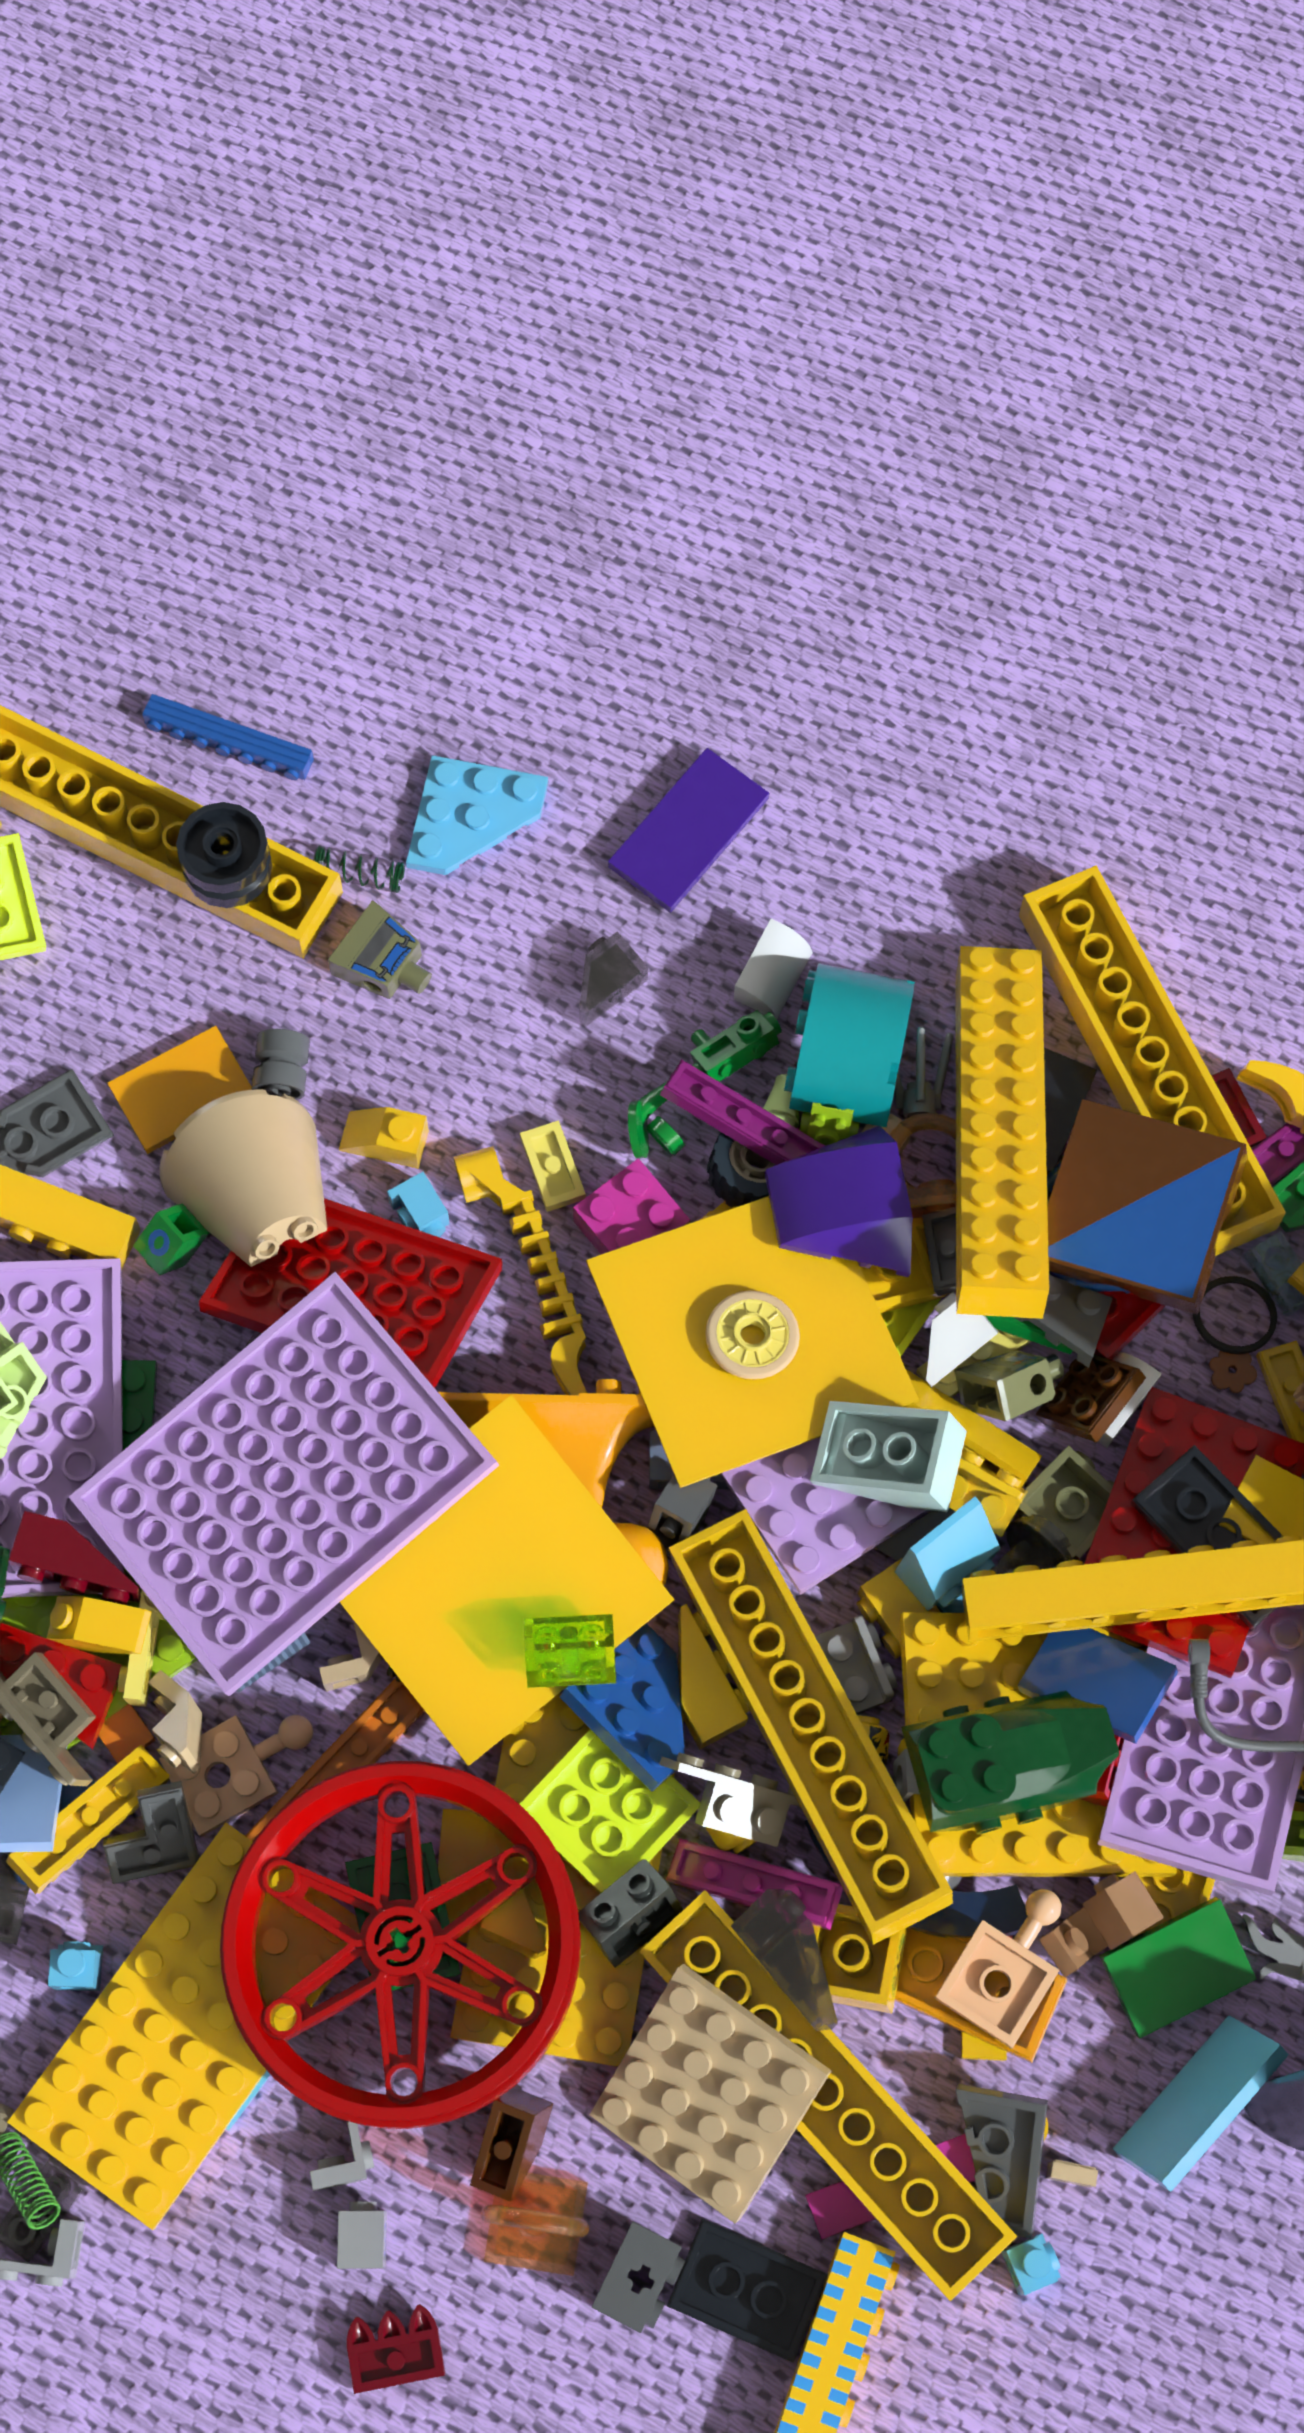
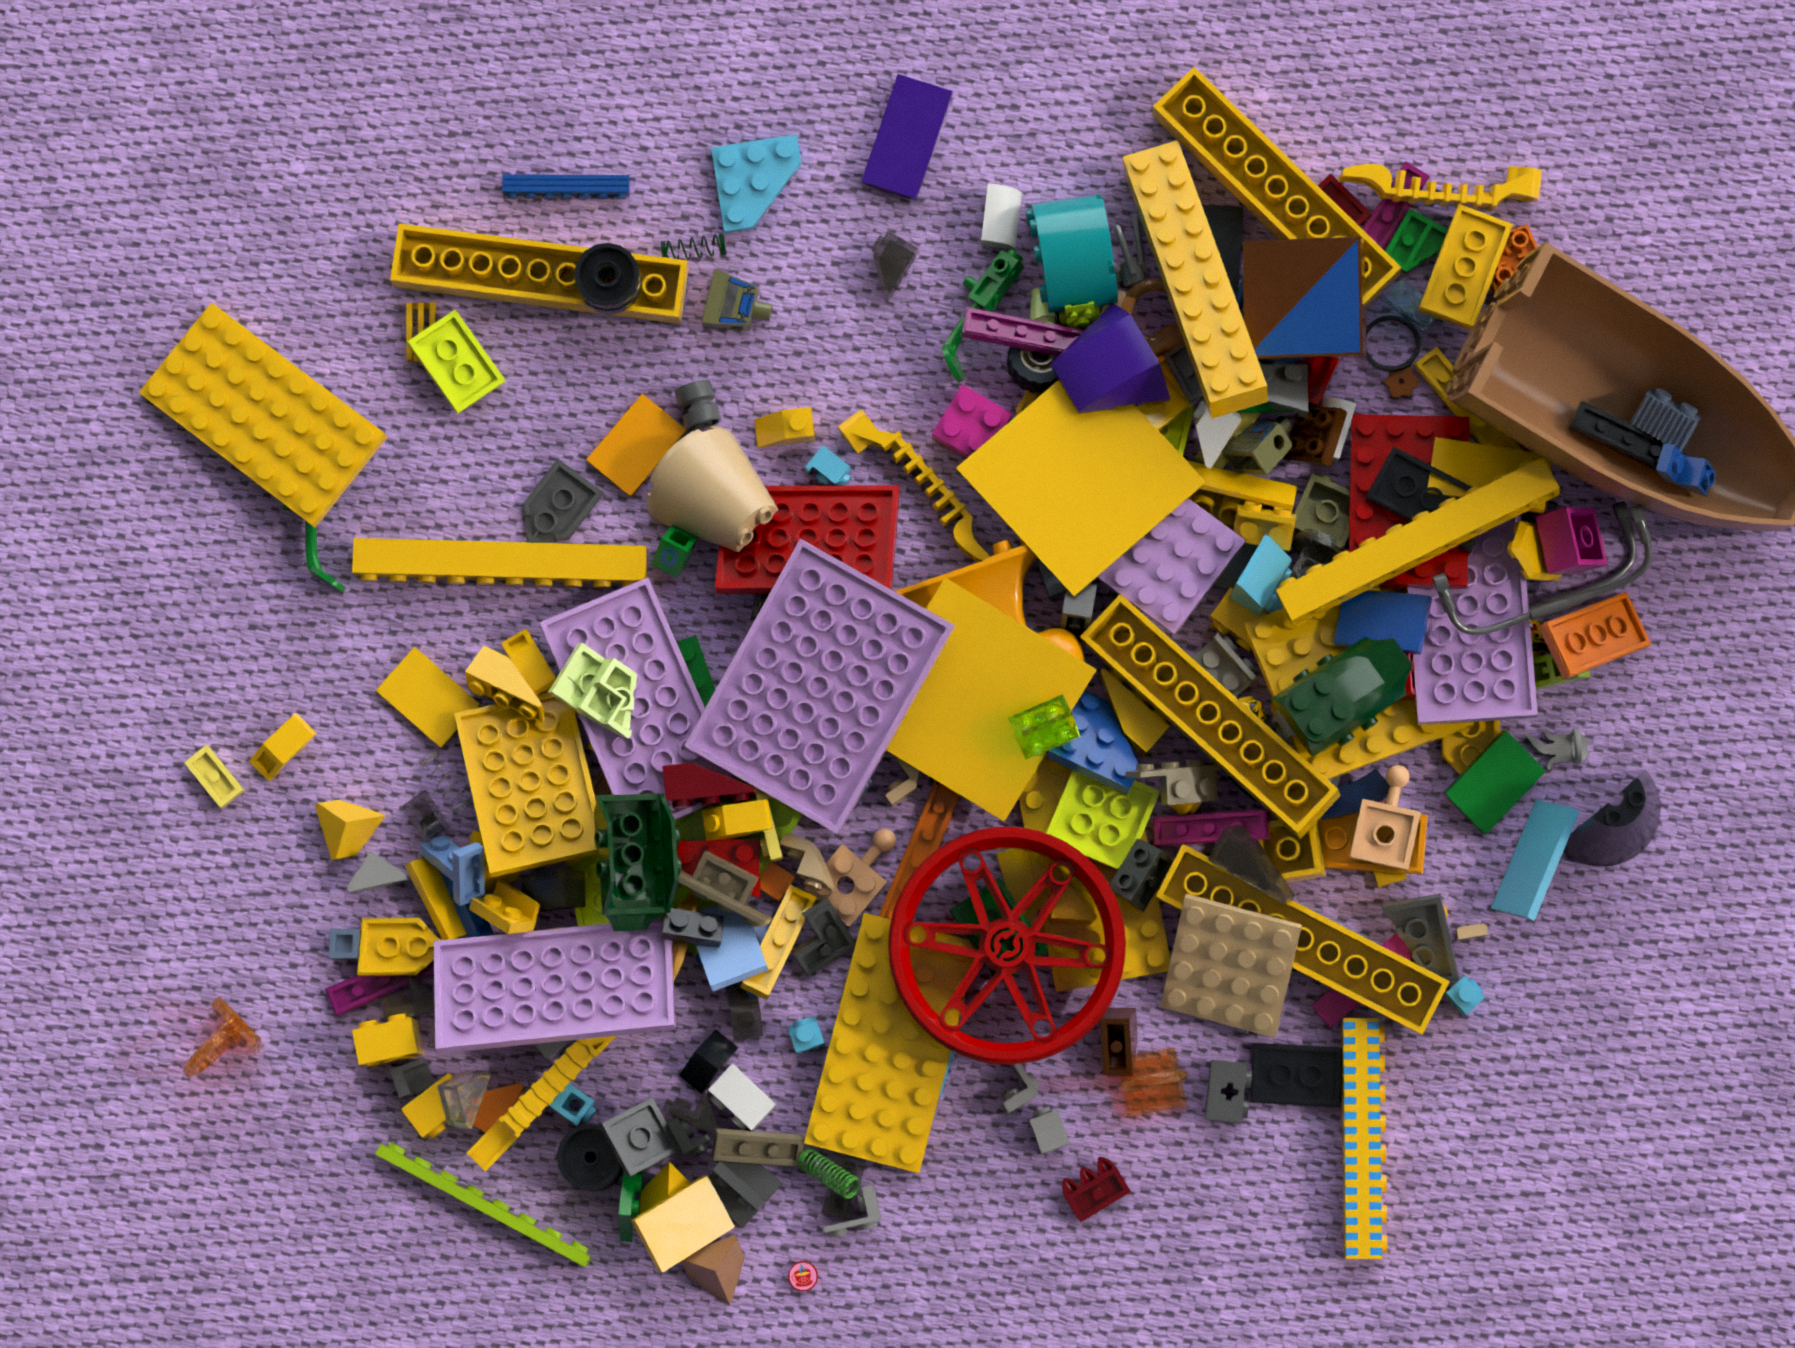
camera: 10 degrees left, 10 degrees up
(552, 1166) = (905, 407): light yellow plate -> none
(665, 1136) = (972, 359): green tile -> none
(747, 1359) = (1087, 496): wheel -> none
(890, 1454) = (1200, 526): light aqua slope -> none
(1073, 1942) = (1425, 788): medium nougat bracket -> none
(1121, 1908) = (1446, 759): medium nougat brick -> none

